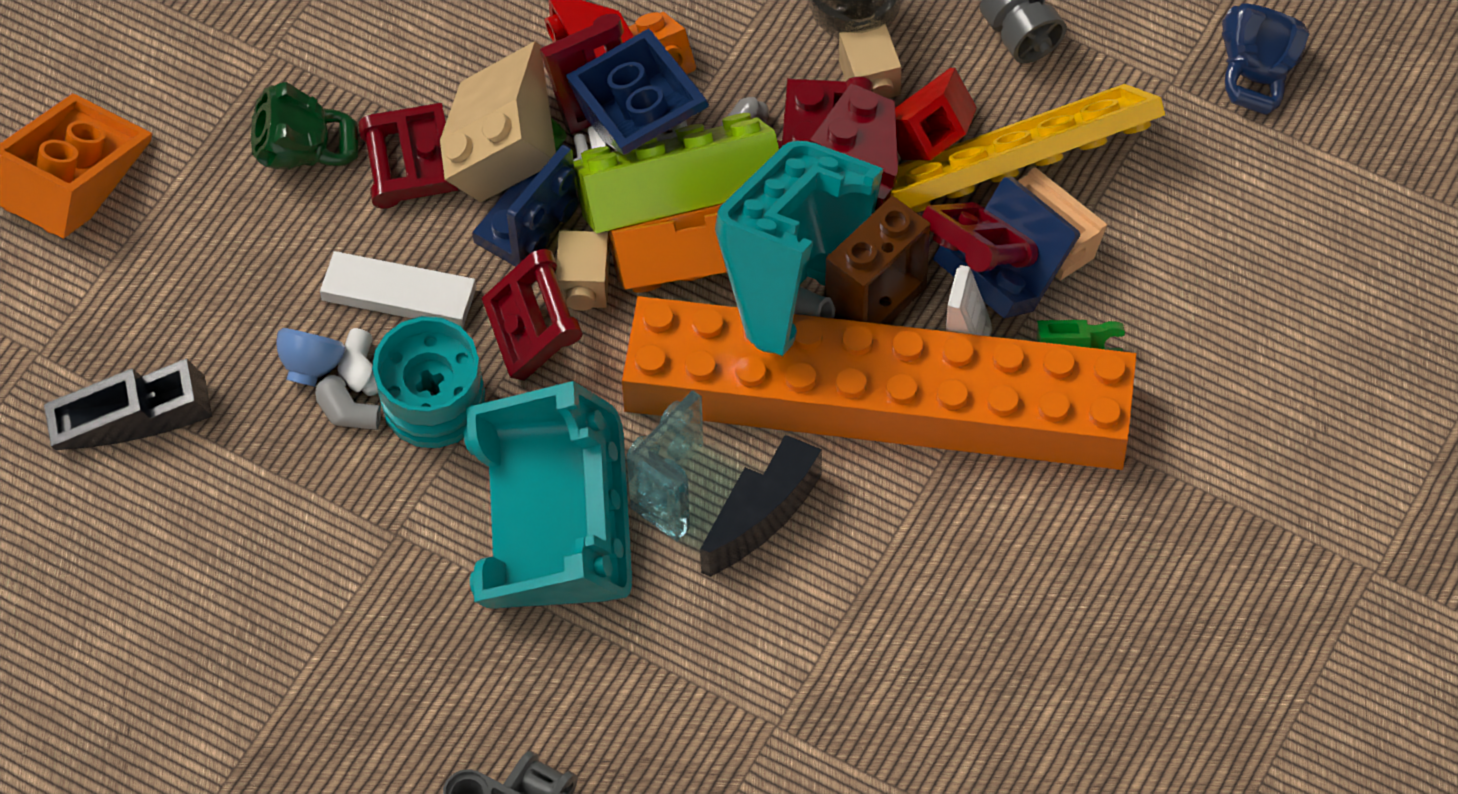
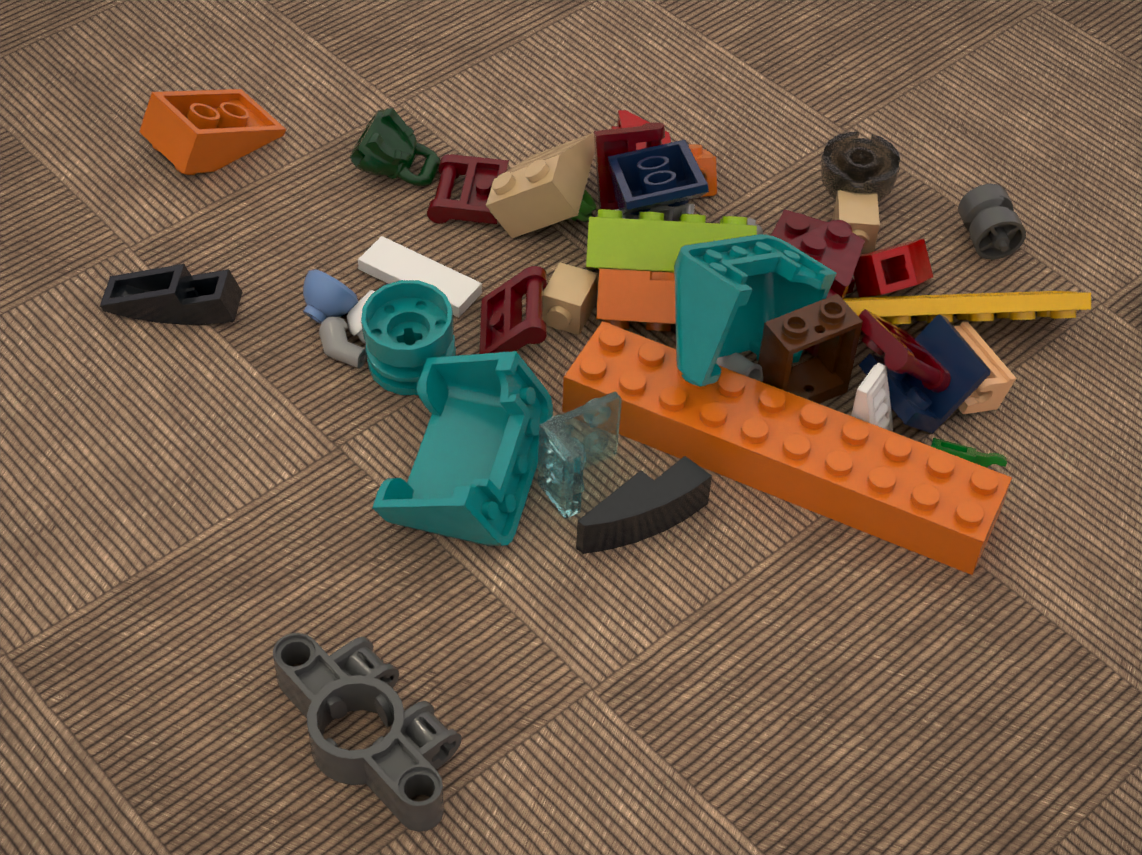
camera: 15 degrees right, 10 degrees down
(530, 211) = (548, 240): dark blue bracket -> none

